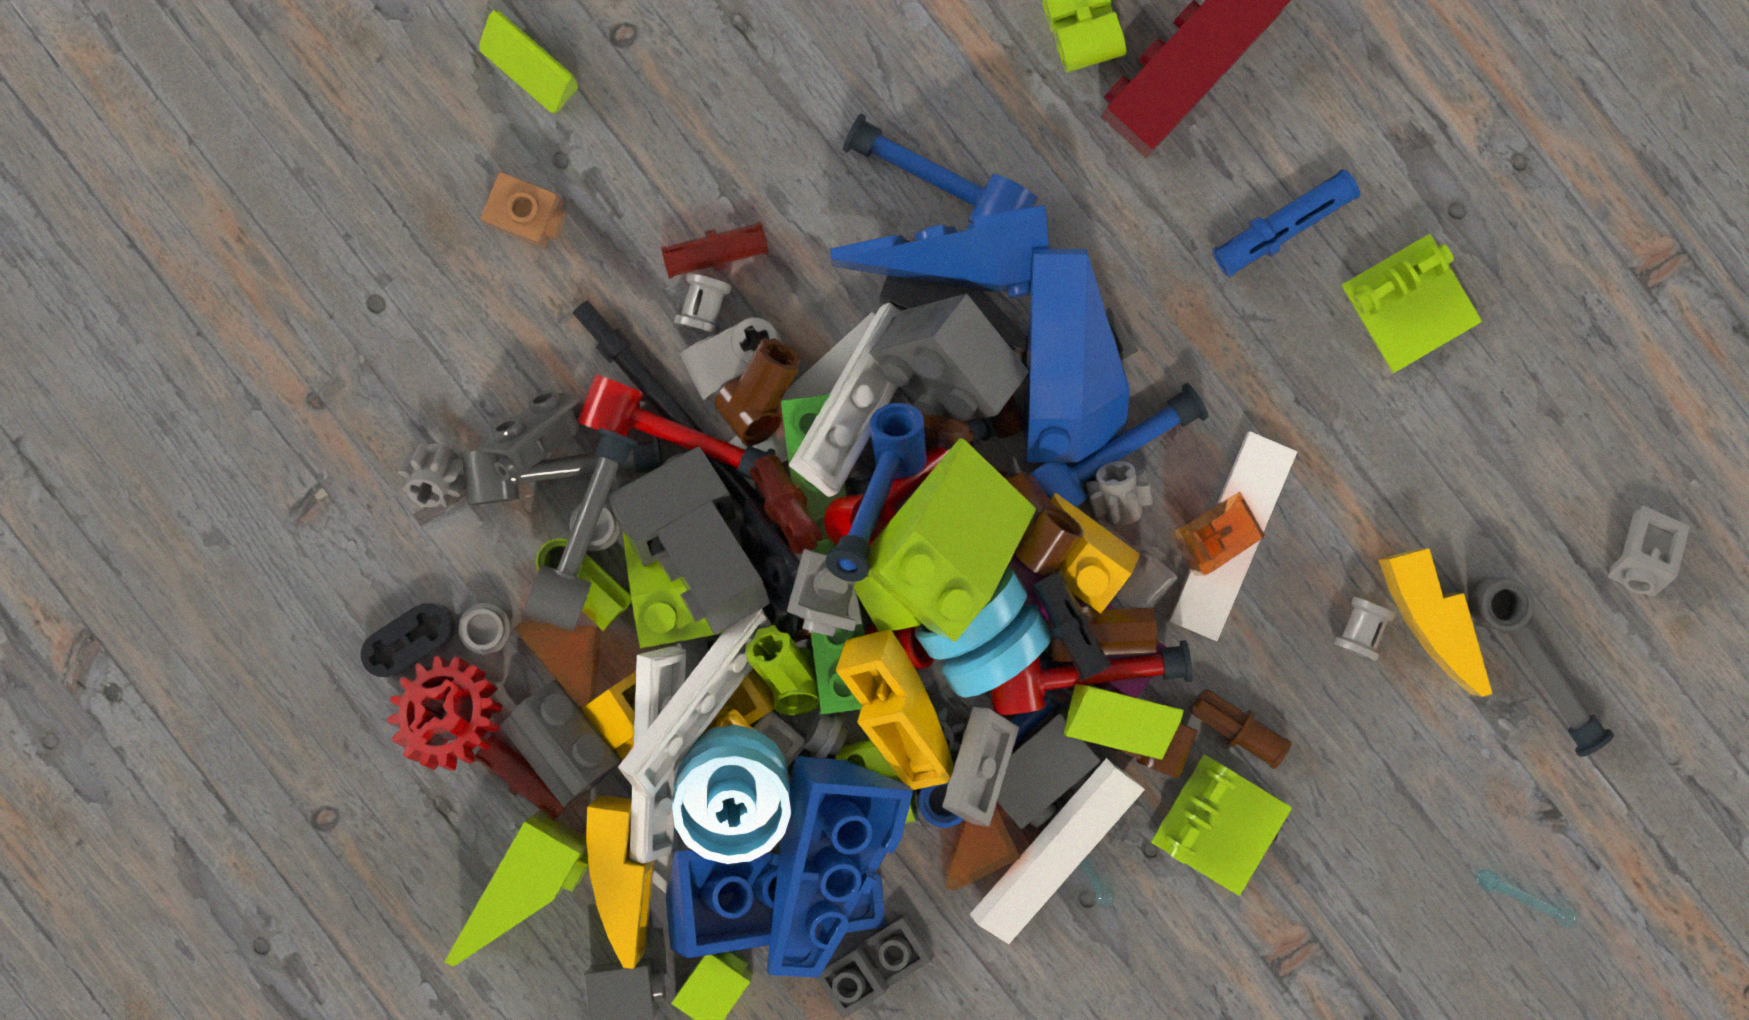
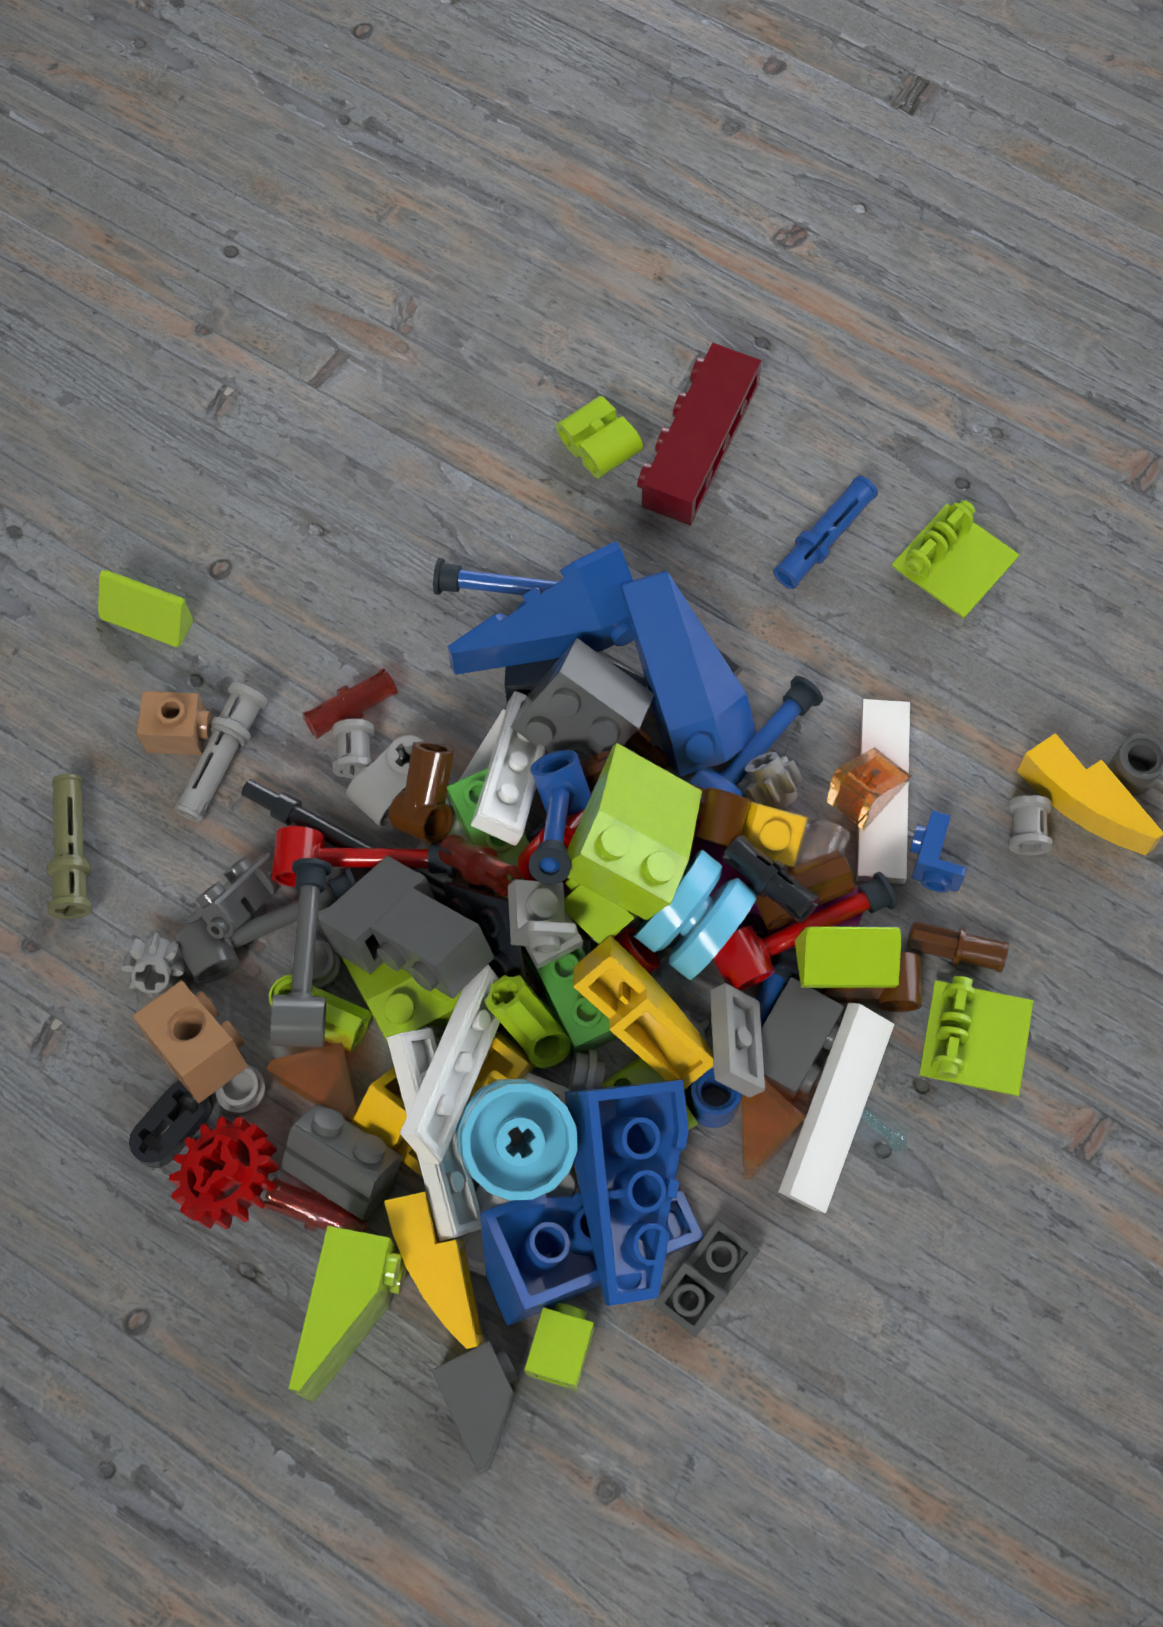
camera: 15 degrees left, 20 degrees down
(375, 335) = (69, 865): none -> olive pin
(431, 547) = (191, 1040): none -> medium nougat brick
(579, 240) = (229, 733): none -> light grey pin
(1253, 615) = (929, 869): none -> blue bracket

